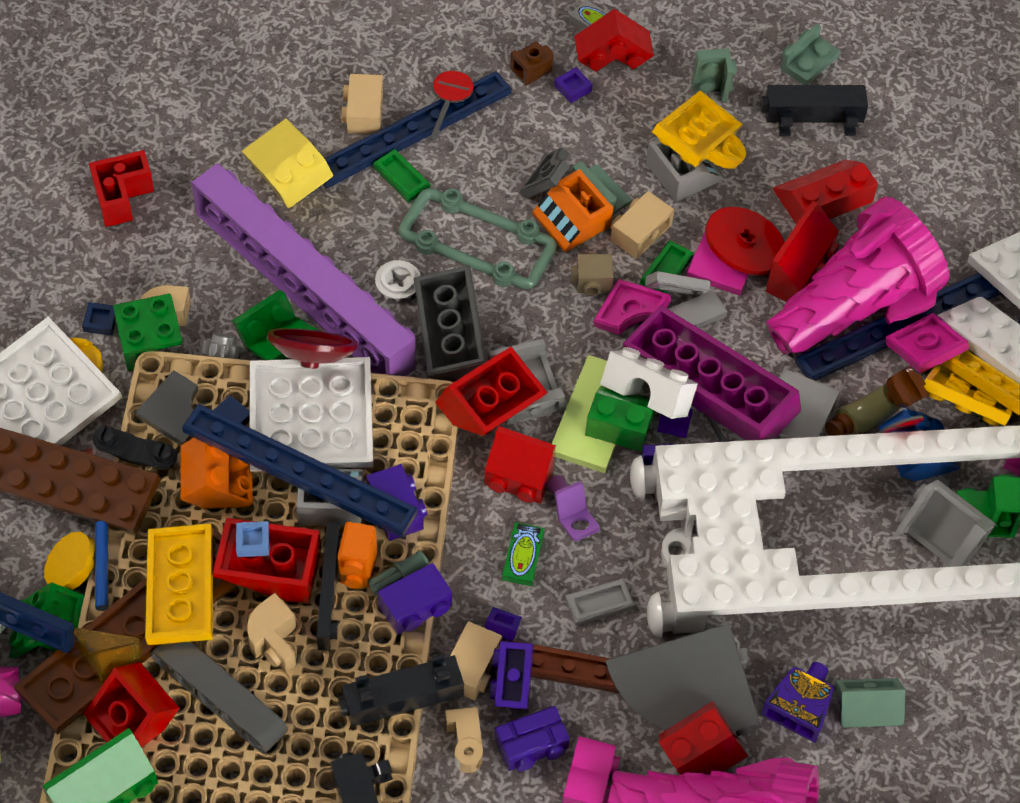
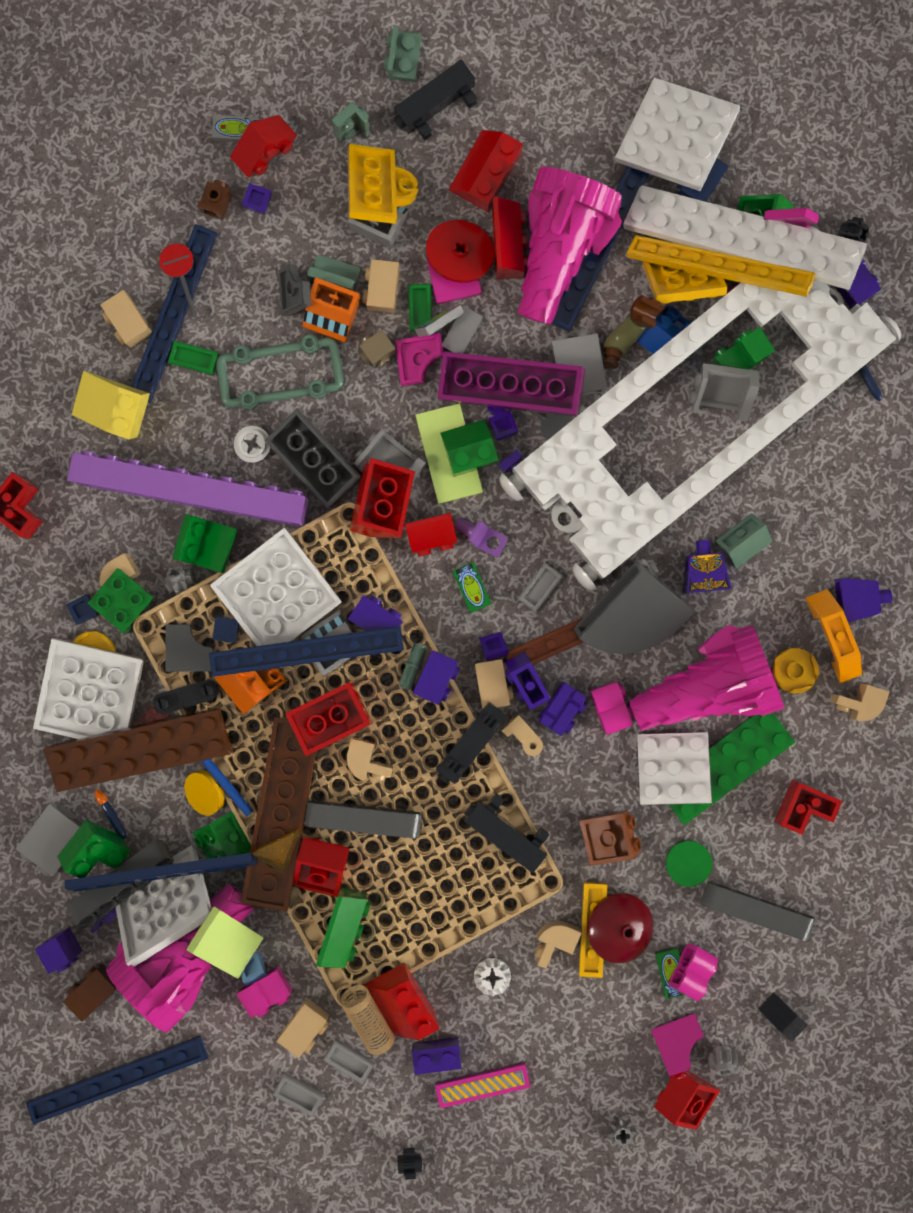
camera: 30 degrees left, 30 degrees up
(179, 584) = (290, 775): yellow plate -> none
(252, 539) = (315, 720): medium blue plate -> none
(311, 346) = (243, 550): dark red dish -> none
(327, 627) = (395, 732): black plate -> none
(357, 555) = (382, 679): orange brick -> none
(670, 389) = (493, 417): white arch -> none
(702, 742) = (666, 648): red slope -> none
(903, 424) = (655, 347): piece -> none
(927, 343) = (631, 253): dark pink tile -> none

